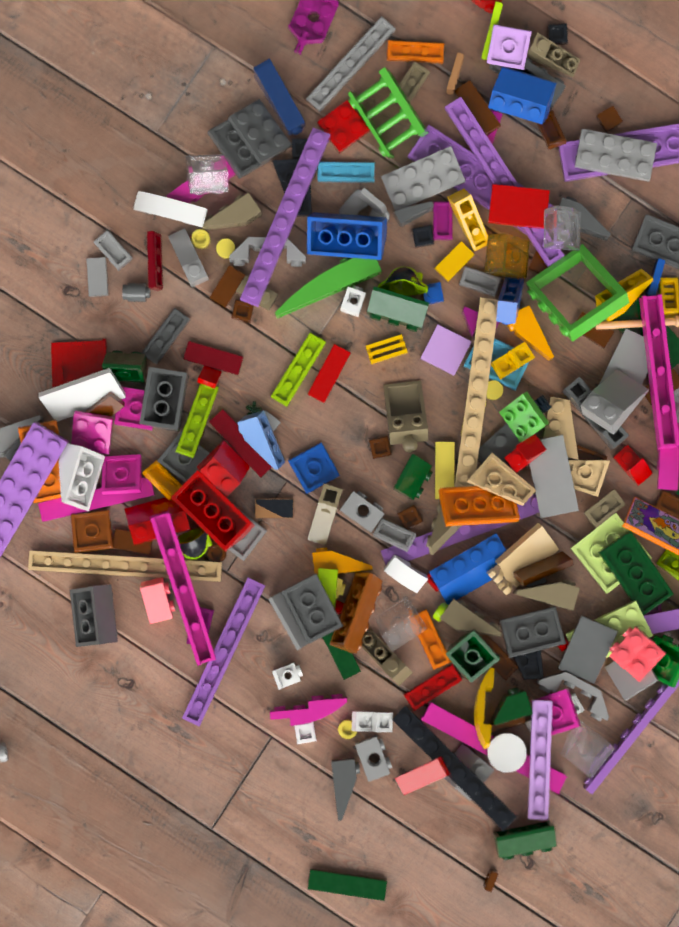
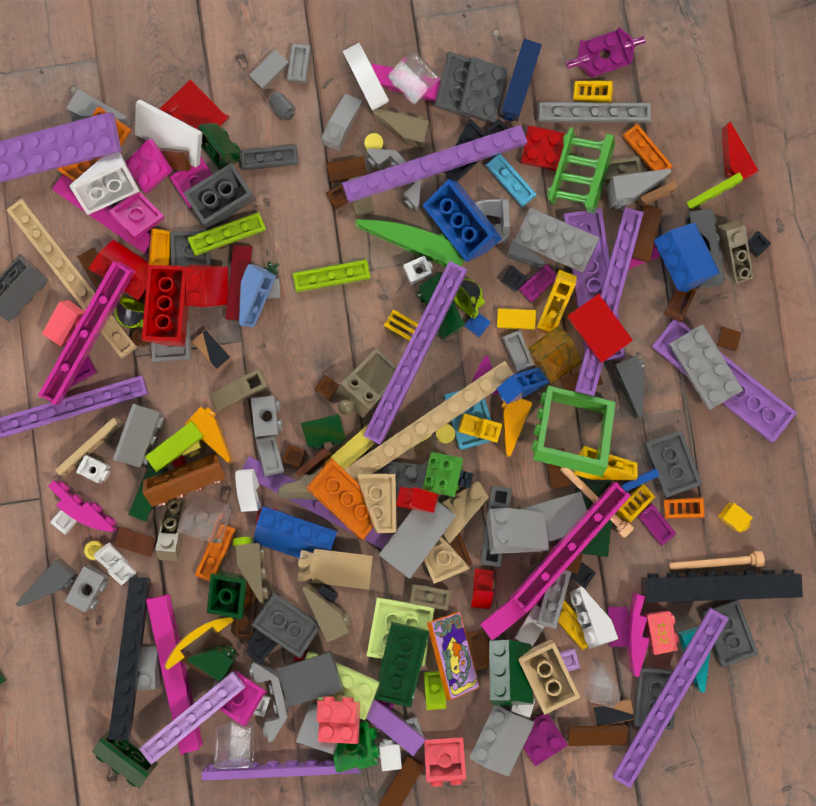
camera: 45 degrees right, 0 degrees up
(91, 531) = (76, 231): dark orange tile -> none
(154, 252) = (317, 99): dark red tile -> none
(200, 238) = (364, 119): light yellow tile -> none
(209, 377) = (266, 215): red tile -> none
(213, 358) = (284, 206): dark red tile -> none
(266, 635) = (88, 447): none -> tan tile
(312, 608) = (155, 443): dark grey plate -> none
(314, 468) = (268, 352): blue tile -> none
(329, 373) = (348, 301): red tile -> none
(335, 40) = (593, 98): none -> yellow slope
(368, 692) = (135, 542): none -> copper tile
(416, 357) = (415, 352): none -> medium lavender plate
(422, 776) = (104, 638): tile -> none
(429, 506) = (314, 463): none -> copper tile
(432, 94) = (628, 188): none -> light grey slope
(433, 687) = (180, 586): red tile -> none
(445, 350) = (444, 371): lavender tile -> none
(490, 880) = (72, 759): reddish brown tile -> none
(506, 752) = (176, 687): white tile -> none
(508, 47) = (713, 213): lavender tile -> none
(543, 568) = (342, 590): reddish brown tile -> none
(562, 228) = (612, 375): clear slope -> none

